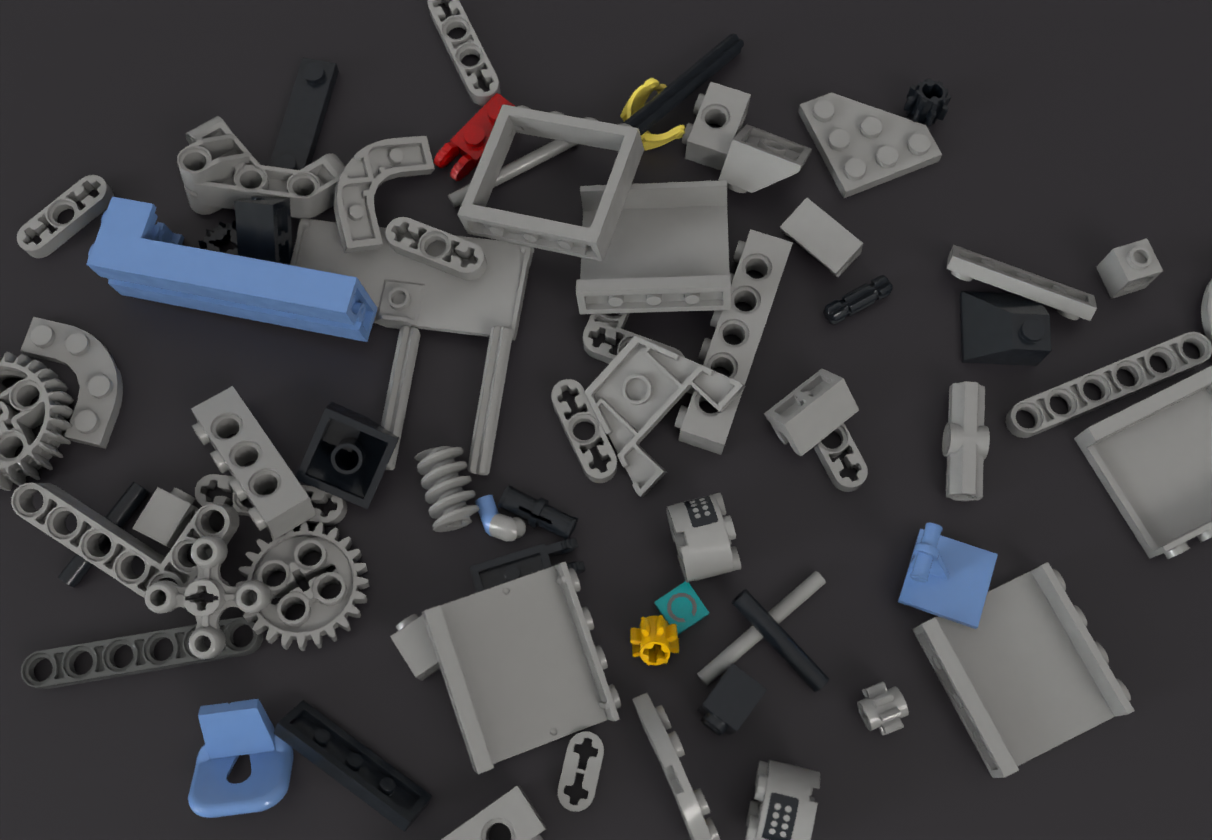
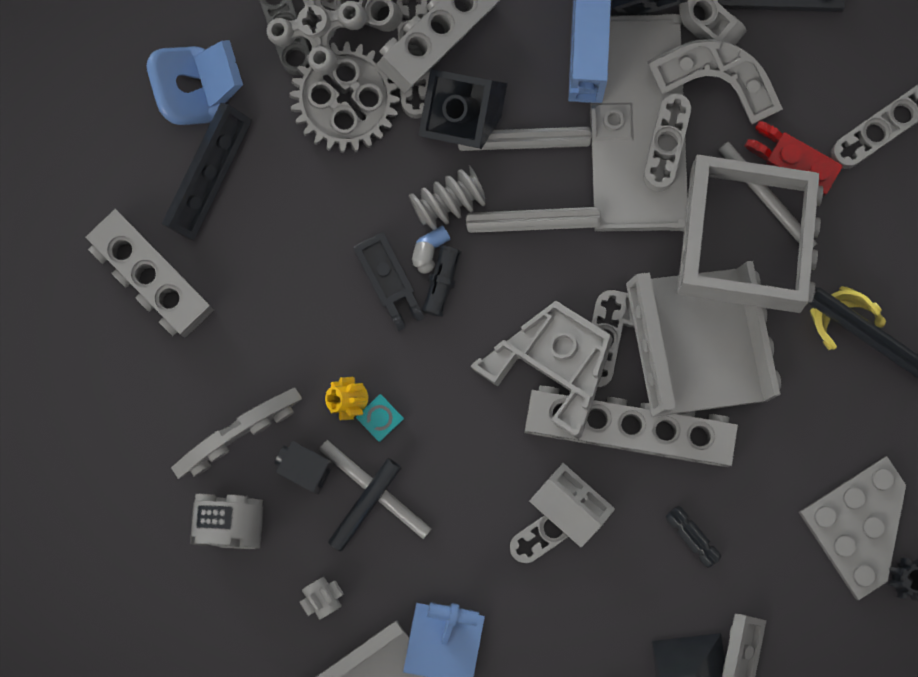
camera: 80 degrees right, 10 degrees up
(416, 646) = (310, 206): light grey brick -> none
(521, 665) = (307, 289): light grey panel -> none
(570, 770) = (231, 365): light grey beam -> none
(585, 459) = (497, 315): light grey beam -> none
(703, 537) = (439, 424): light grey brick -> none
(718, 106) = (825, 381): light grey brick -> none
(761, 160) = (819, 428): light grey slope -> none
(822, 237) = (746, 493): light grey hinge -> none
(965, 441) = (571, 648): light grey piece -> none

